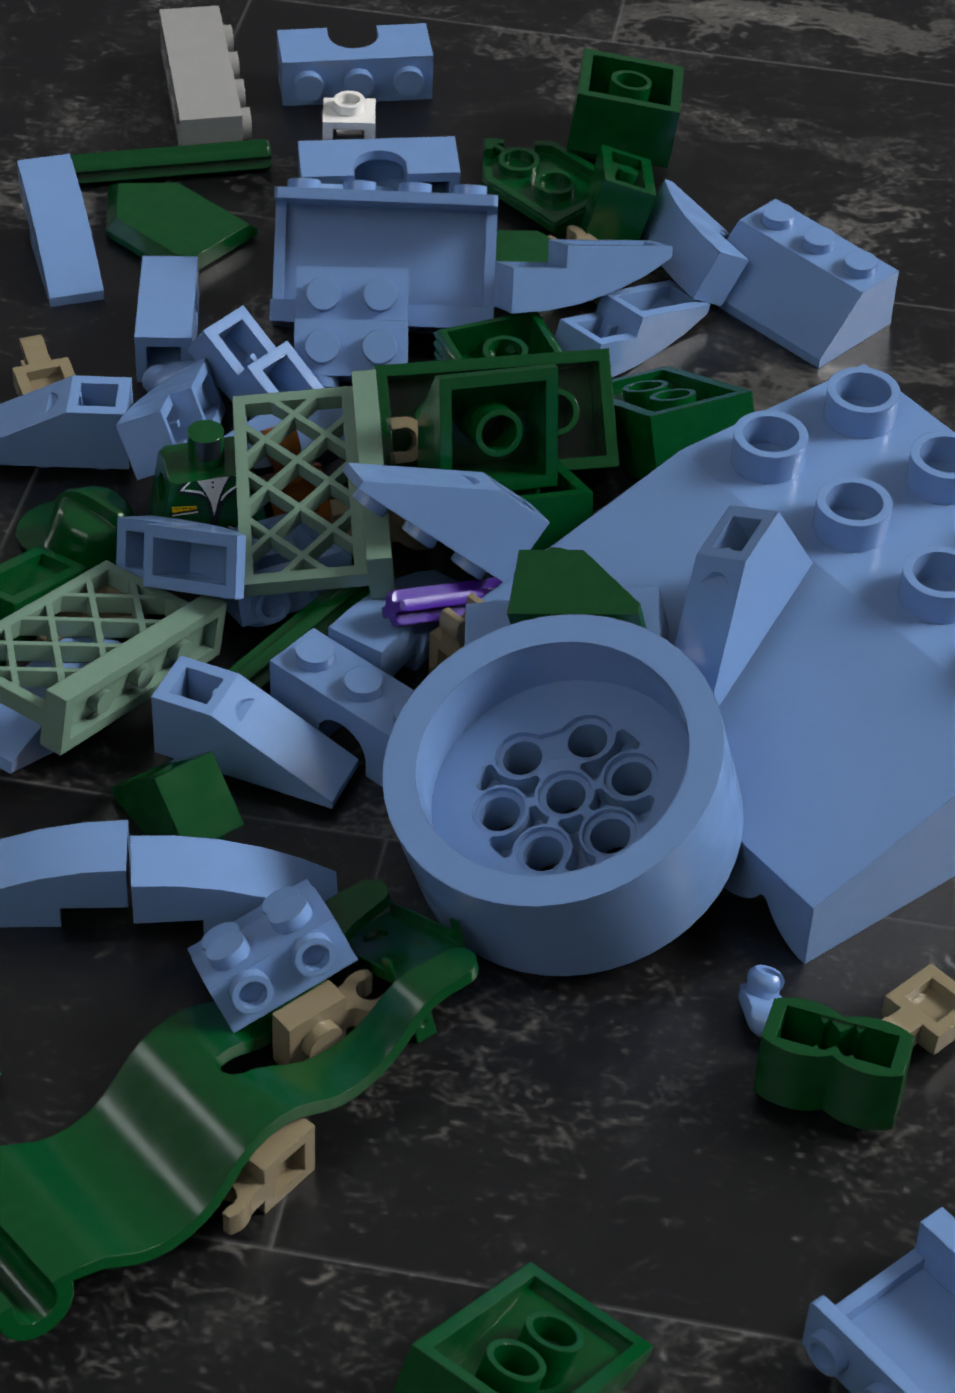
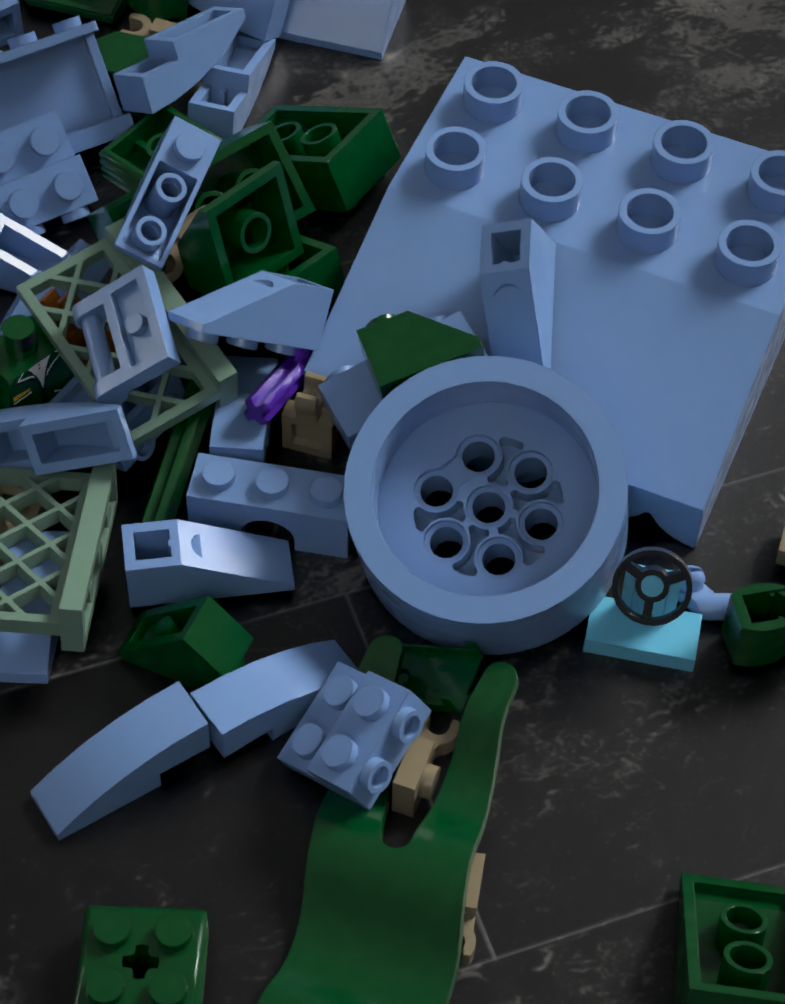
camera: 30 degrees left, 10 degrees up
(297, 473) = (138, 333): none -> medium blue plate
(460, 340) = (166, 193): none -> medium blue slope
(683, 998) = (644, 619): none -> medium azure piece

